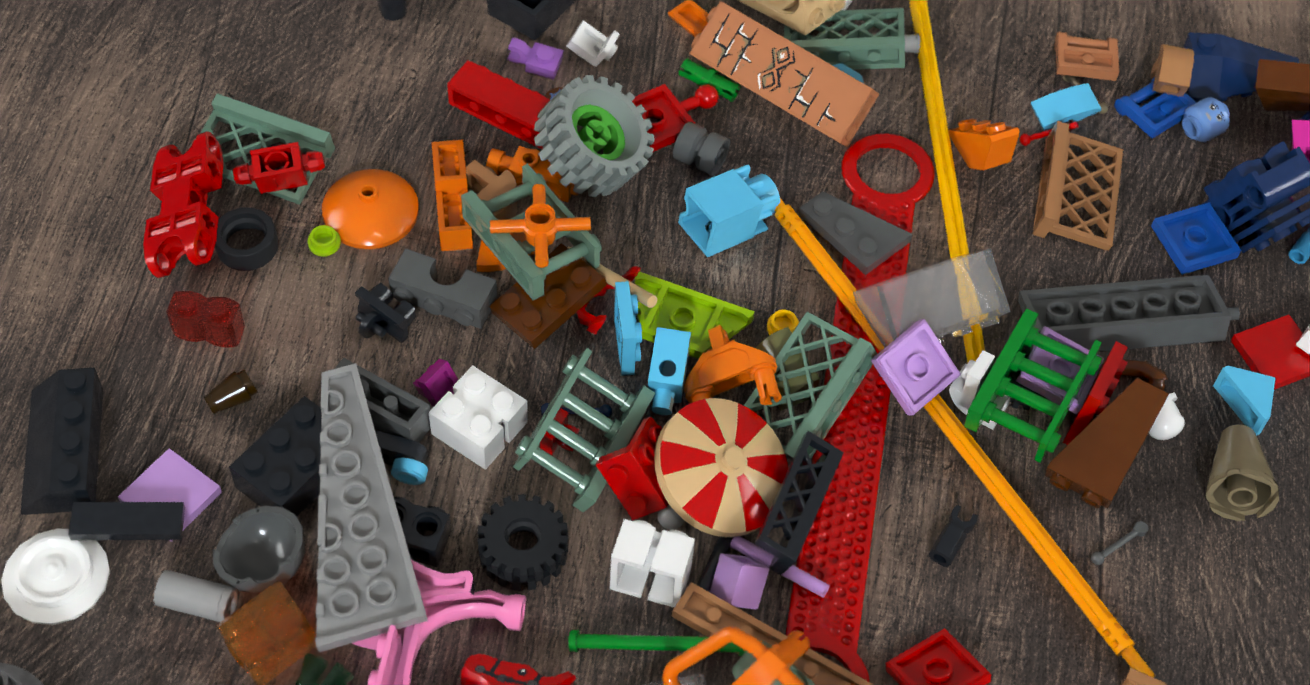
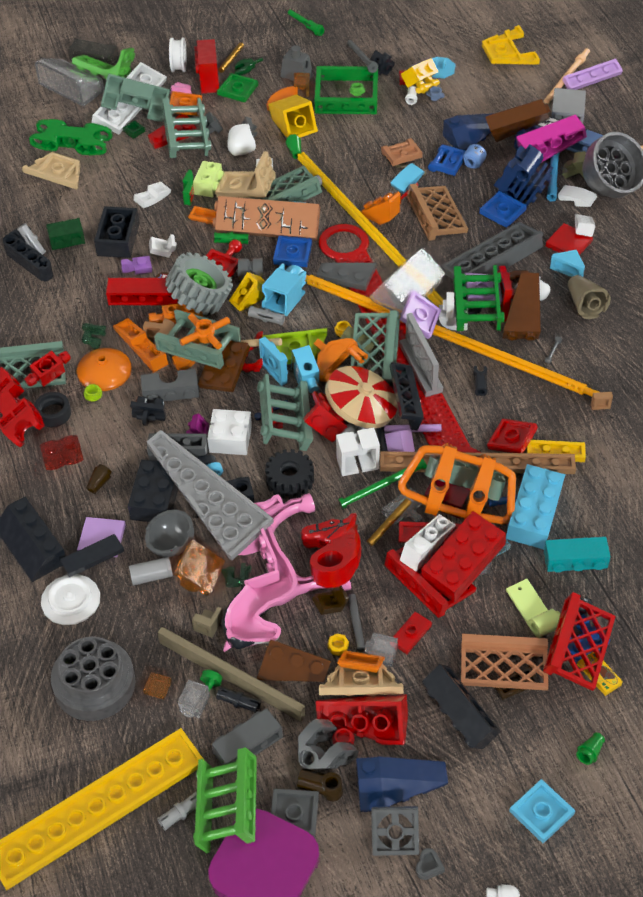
camera: 25 degrees left, 5 degrees down
(385, 156) = (90, 329): none -> clear green piece
(668, 185) = (248, 292): none -> yellow slope
(676, 240) = (266, 315): none -> light grey pin
(791, 148) = (292, 251): none -> blue plate
(868, 451) = (421, 358): none -> light grey fence
(1173, 70) = (447, 140): medium nougat brick -> none

